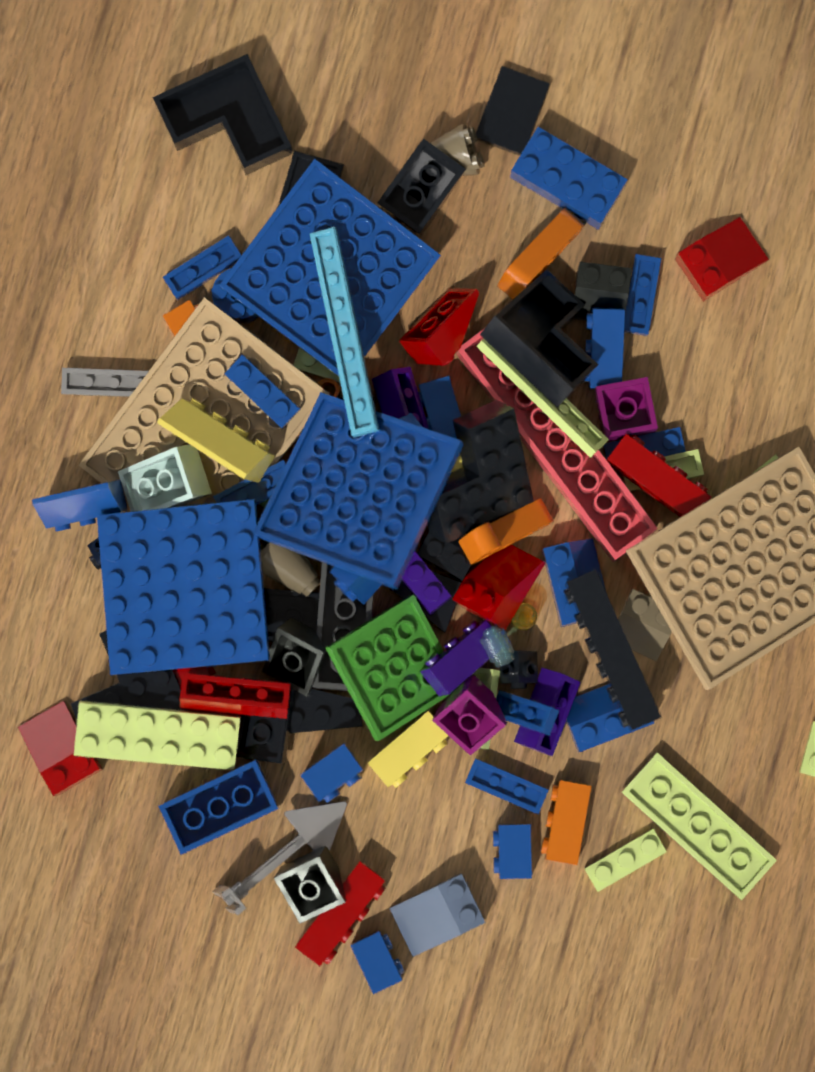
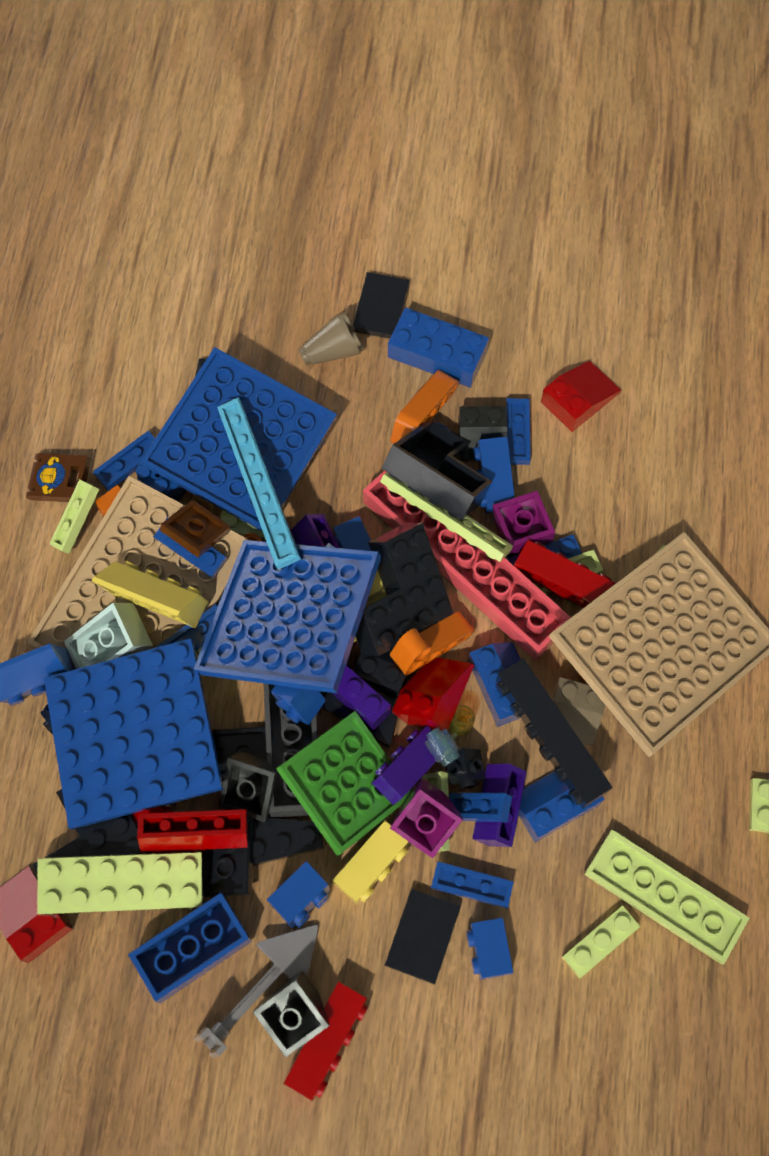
camera: 10 degrees left, 15 degrees down
(100, 382) = (40, 568): light grey plate -> none
(118, 276) = (52, 476): none -> reddish brown container
(139, 329) = (74, 516): none -> yellowish green plate
(230, 101) = (132, 325): black piece -> none
(270, 374) = (195, 528): none -> reddish brown plate
(288, 568) = (232, 703): dark tan cone -> none
(377, 962) = (370, 1087): blue brick -> none
(422, 186) = (313, 364): black slope -> none
(437, 915) = (424, 1027): sand blue slope -> none
(442, 328) = (346, 479): red slope -> none
(449, 828) = (422, 936): none -> black tile
(566, 822) = (537, 911): orange brick -> none

